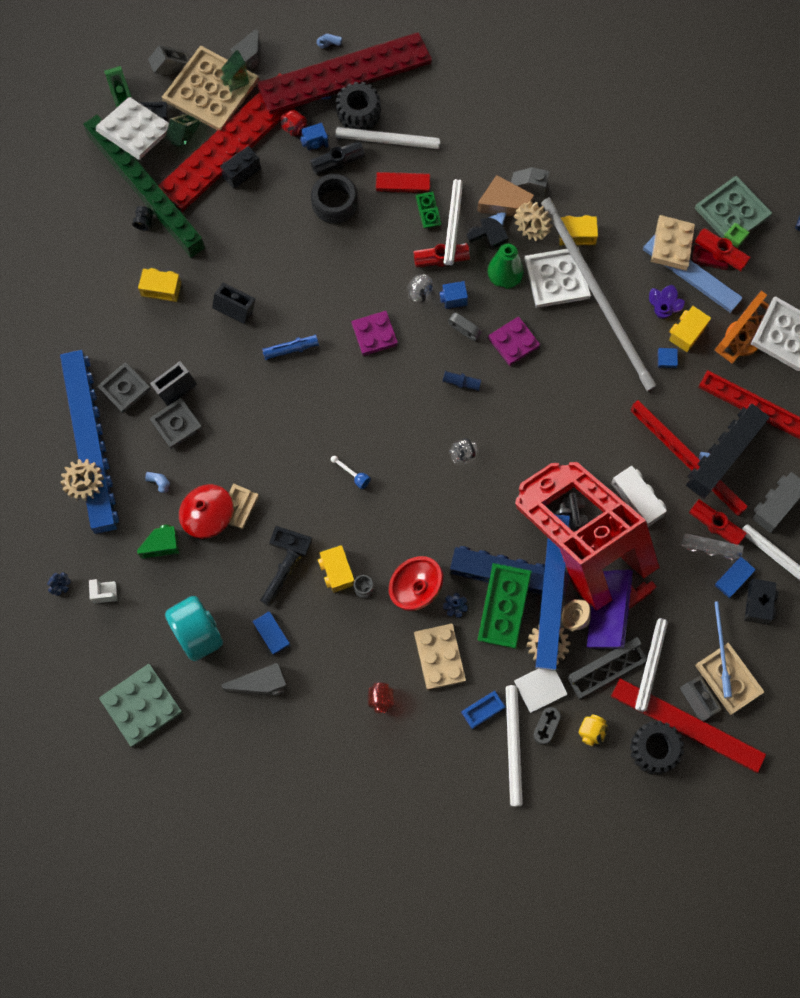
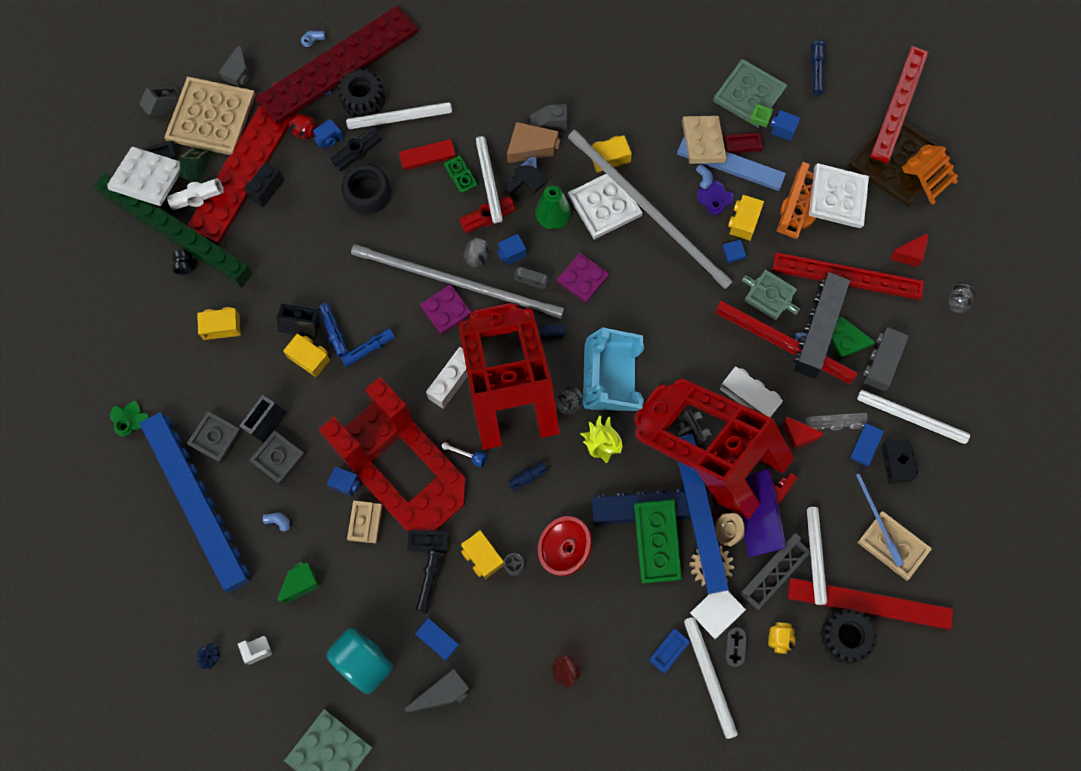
camera: 15 degrees left, 0 degrees up
(53, 346) = (129, 416): none -> green plate
(82, 488) = (202, 537): tan gear -> none
(117, 85) = (116, 138): green slope -> none
(174, 158) = (195, 194): none -> white piece
(211, 517) = (343, 540): red dish -> none
(230, 463) = (344, 481): none -> blue brick
(231, 337) = (307, 355): none -> yellow brick
(234, 72) = (230, 93): clear green slope -> none
(263, 321) = (336, 337): none -> blue pin
(272, 427) = (376, 431): none -> red bracket
(359, 397) = (448, 380): none -> white brick
(402, 510) = (527, 476): none -> dark blue pin
(411, 416) = (508, 383): none -> red bracket
(439, 657) = (610, 611): tan plate -> none
(455, 605) = (609, 559): dark blue plant -> none
(471, 360) = (367, 253): none -> light grey piece
(482, 497) = (602, 440): none -> neon yellow hair
(513, 435) = (611, 371): none -> medium azure windscreen
(533, 221) = (565, 156): tan gear -> none
(664, 278) = (706, 176): none -> medium blue arm
(673, 548) = (800, 434): none -> red slope
(689, 409) = (770, 295): none -> sand green plate
(700, 698) = (873, 573): dark grey slope -> none
(706, 515) = (822, 394): red piece -> none
(731, 255) = (763, 135): red piece -> none
(750, 472) = (849, 339): none -> green wing
(757, 250) = (784, 125): none -> blue brick

